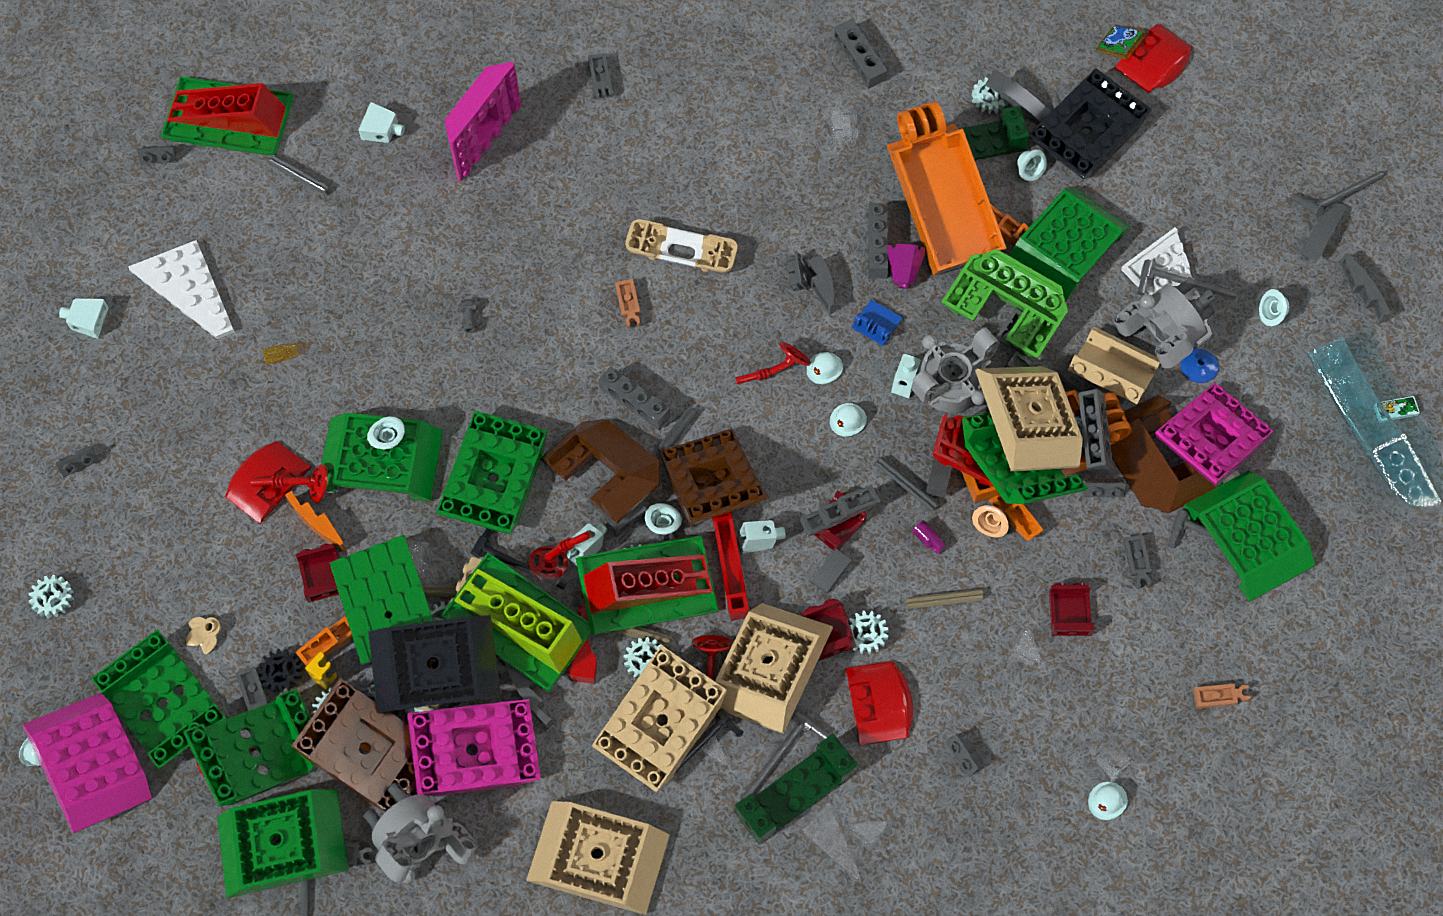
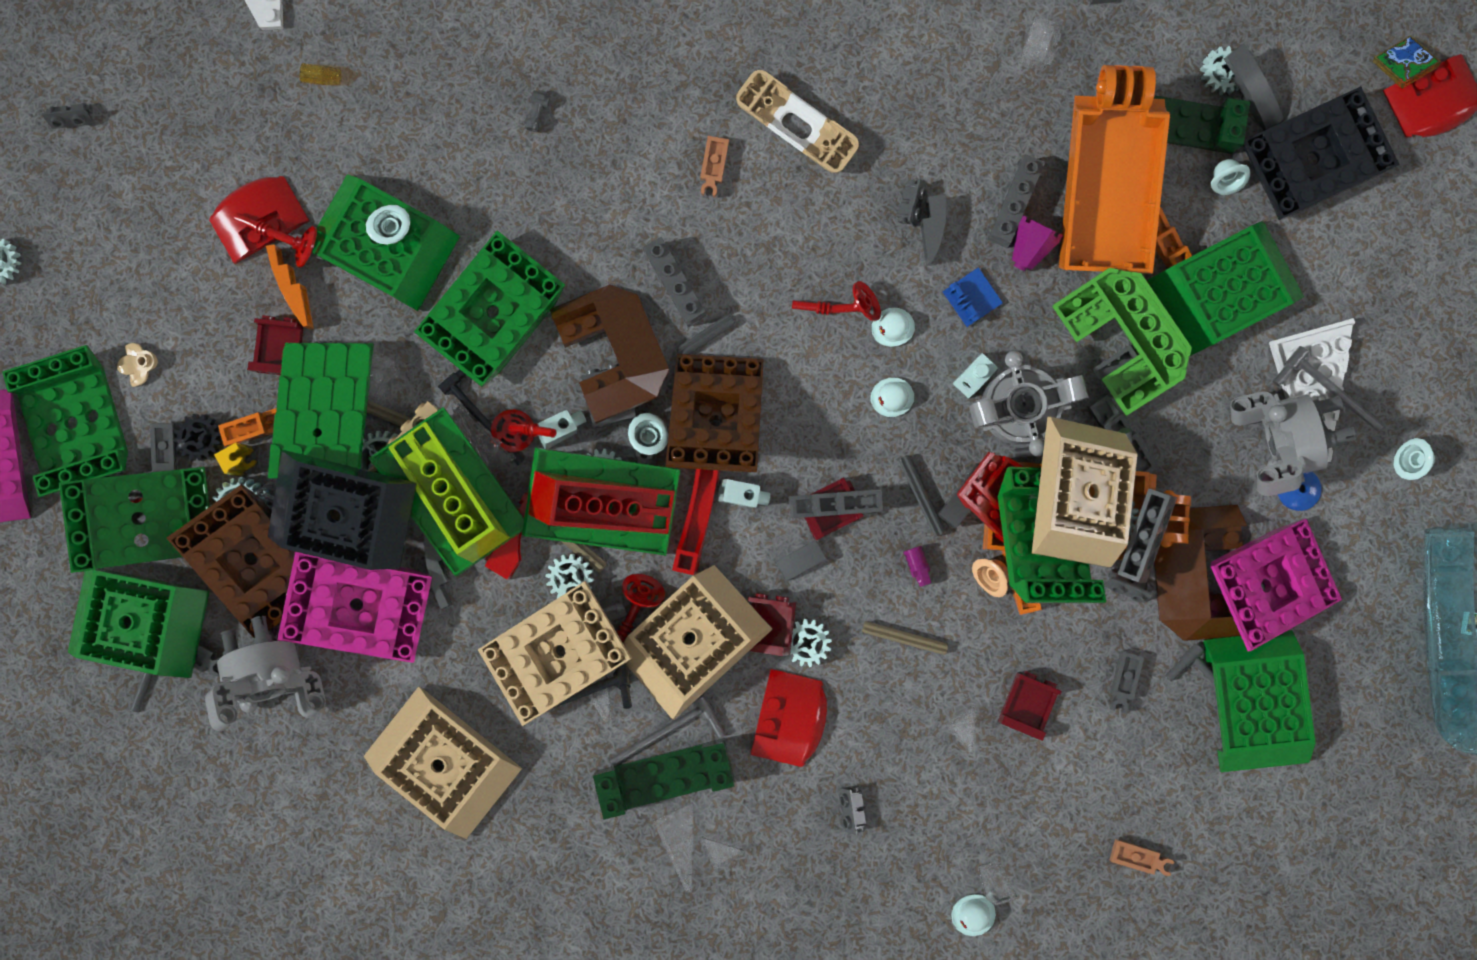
camera: 30 degrees right, 20 degrees up
(1115, 365) = (1205, 458): tan panel -> none

